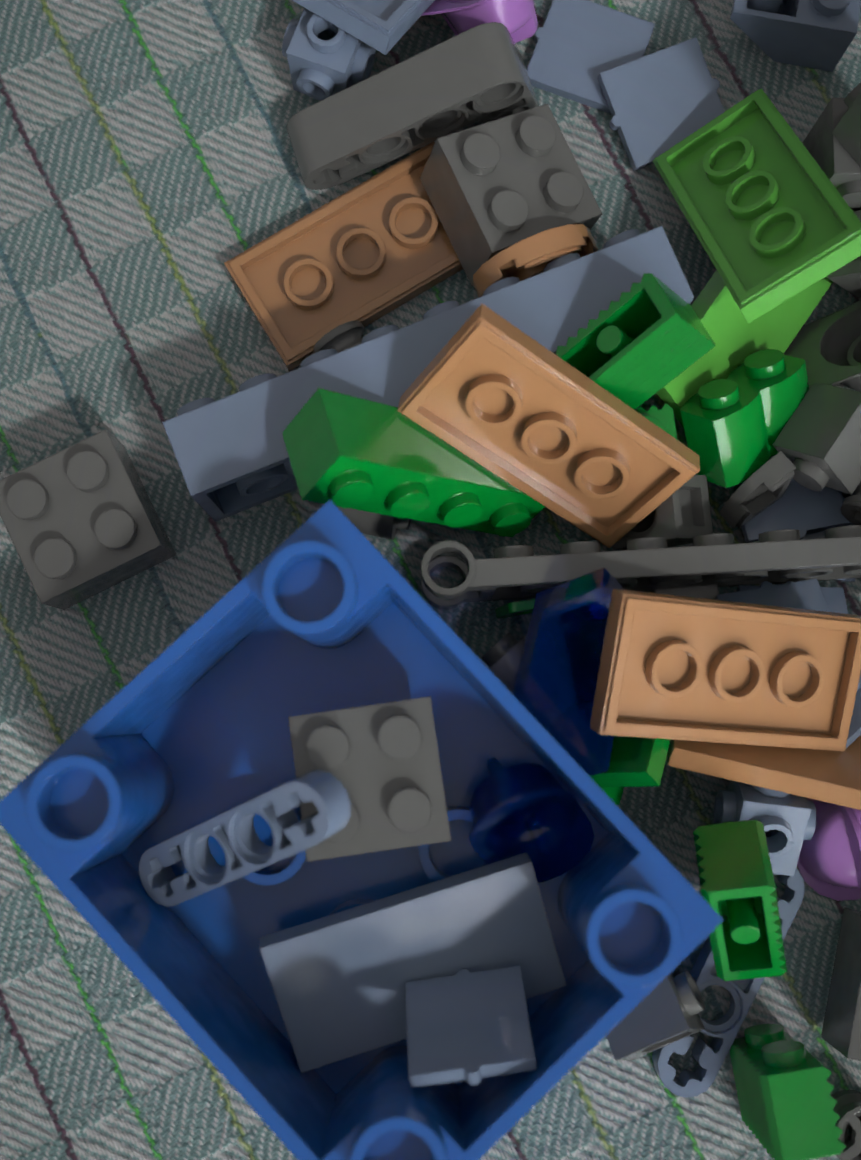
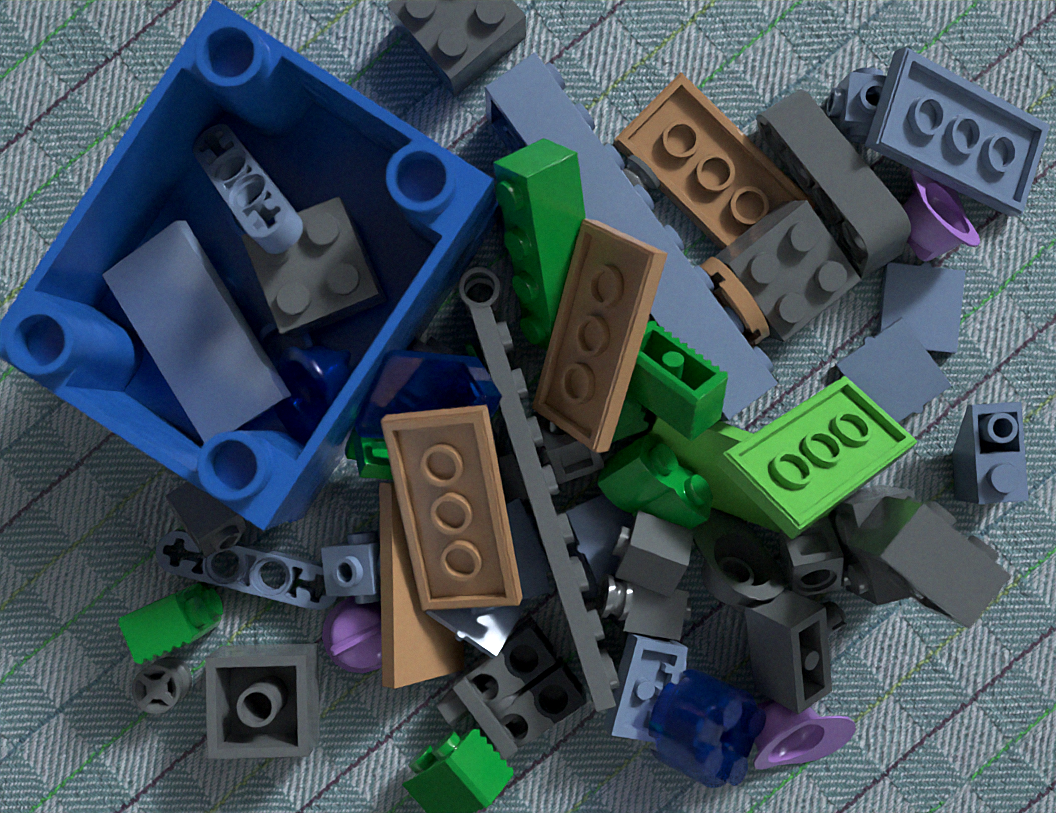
camera: 80 degrees right, 5 degrees up
(468, 1027) = (155, 376): sand blue piece -> none
(741, 888) = (295, 555): green brick -> none
(759, 491) = (601, 509): dark grey tile -> none

